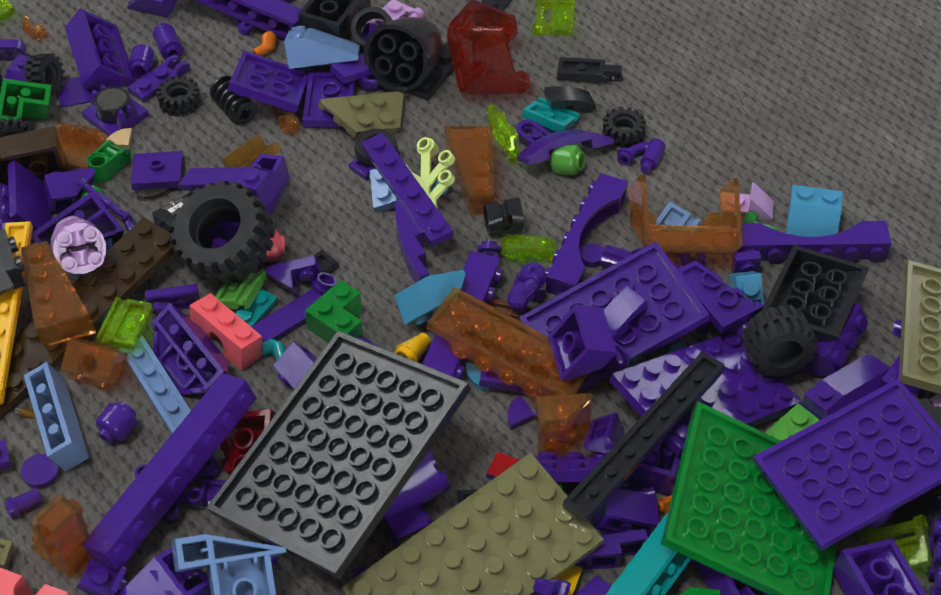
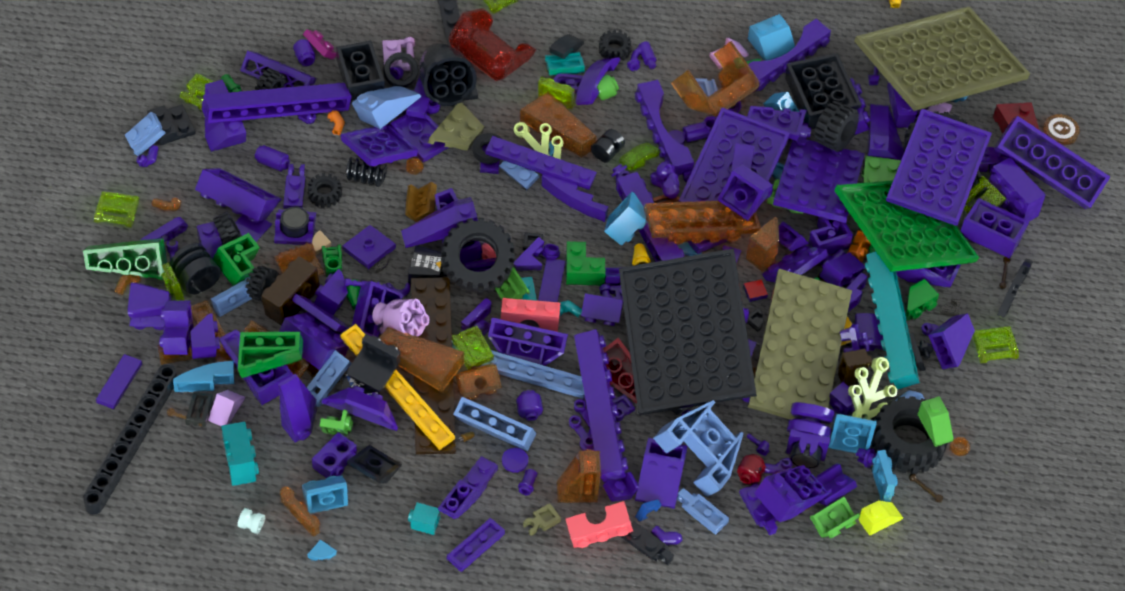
camera: 45 degrees left, 5 degrees up
(140, 60) = (272, 182): dark purple brick -> none
(588, 70) = (554, 19): black hinge -> none
(643, 437) = (828, 221): black plate -> none
(746, 262) = (764, 91): dark purple plate -> none

